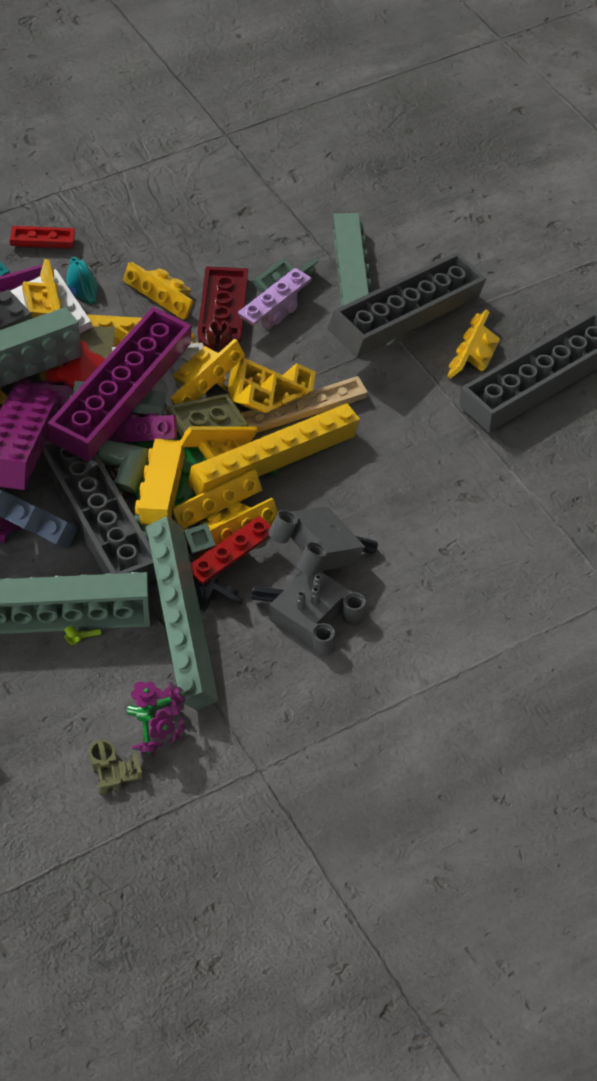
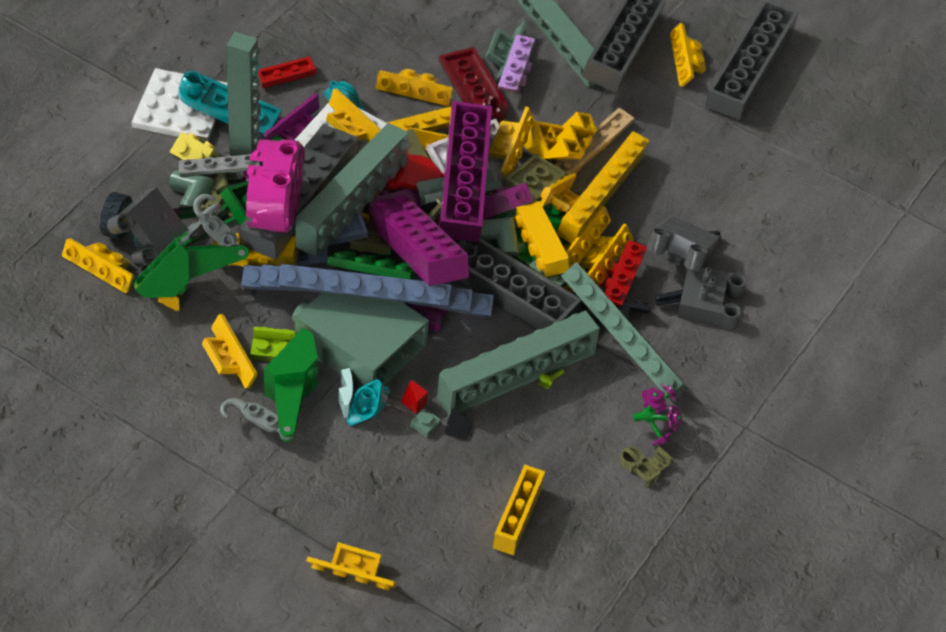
camera: 30 degrees left, 0 degrees up
(199, 539) = (599, 272): sand green plate -> none

